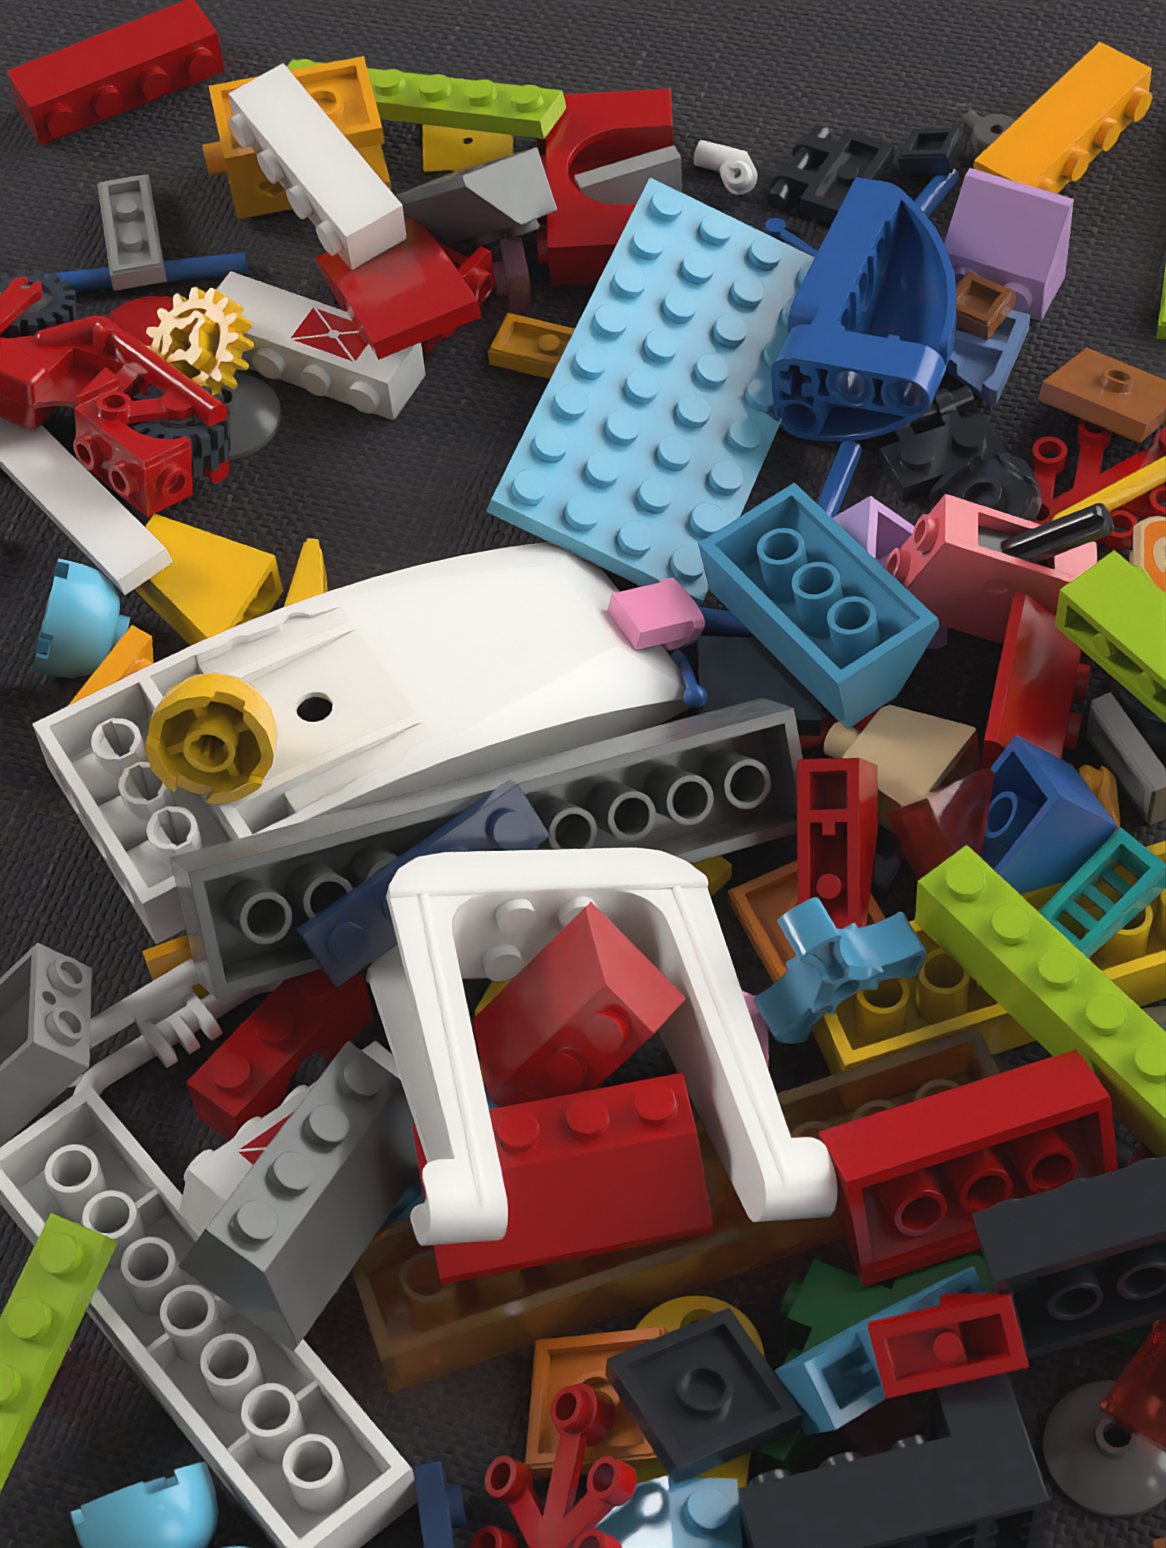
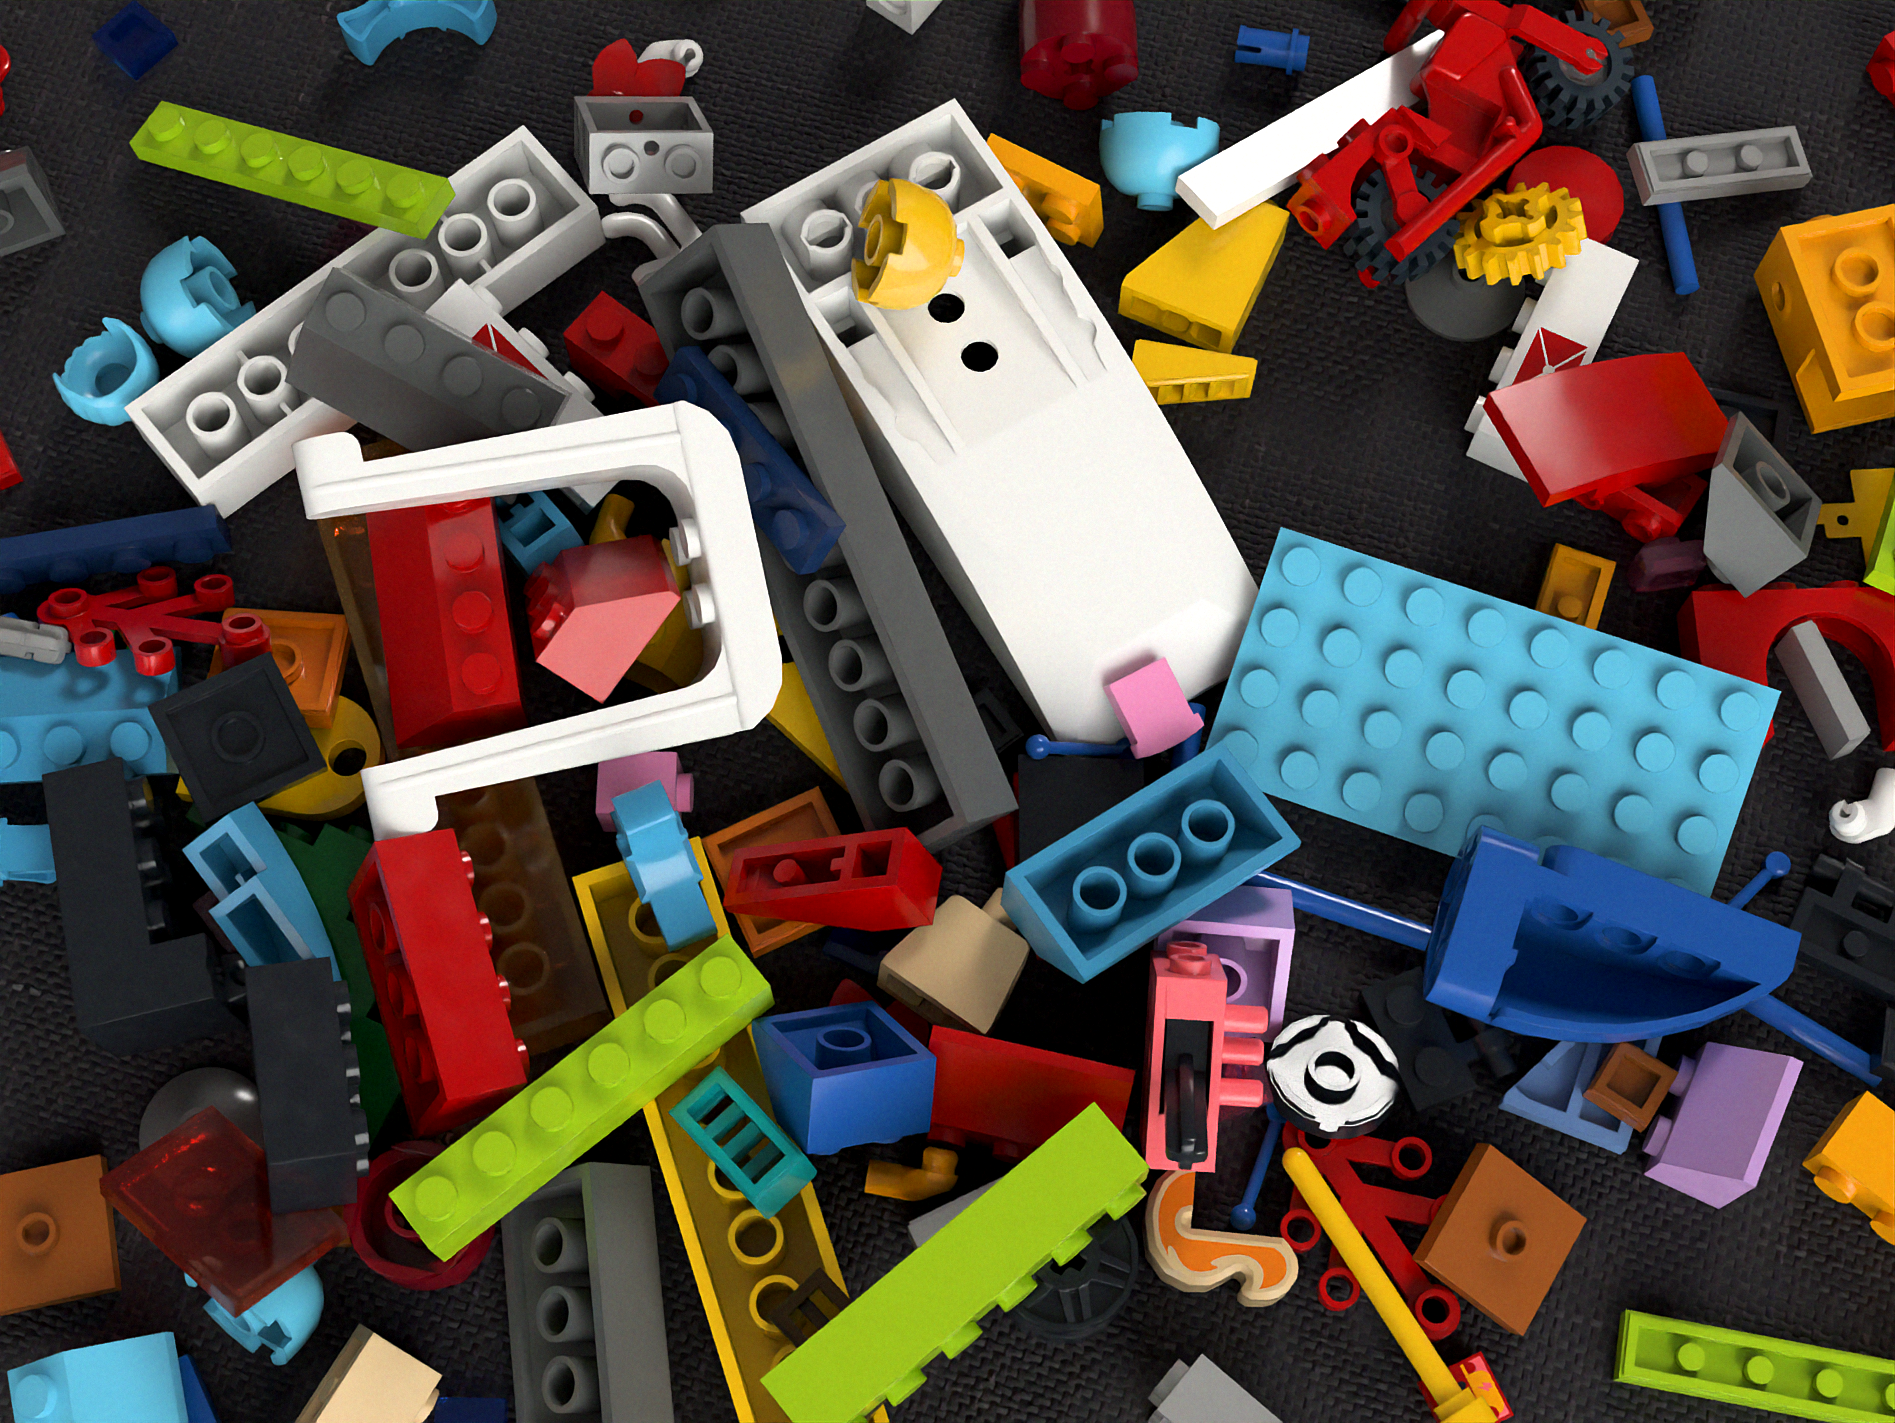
camera: 85 degrees right, 15 degrees up
(316, 167) = (1756, 316): white brick -> none
(944, 821) = (852, 990): clear red slope -> none
(948, 1343) = (222, 935): red slope -> none

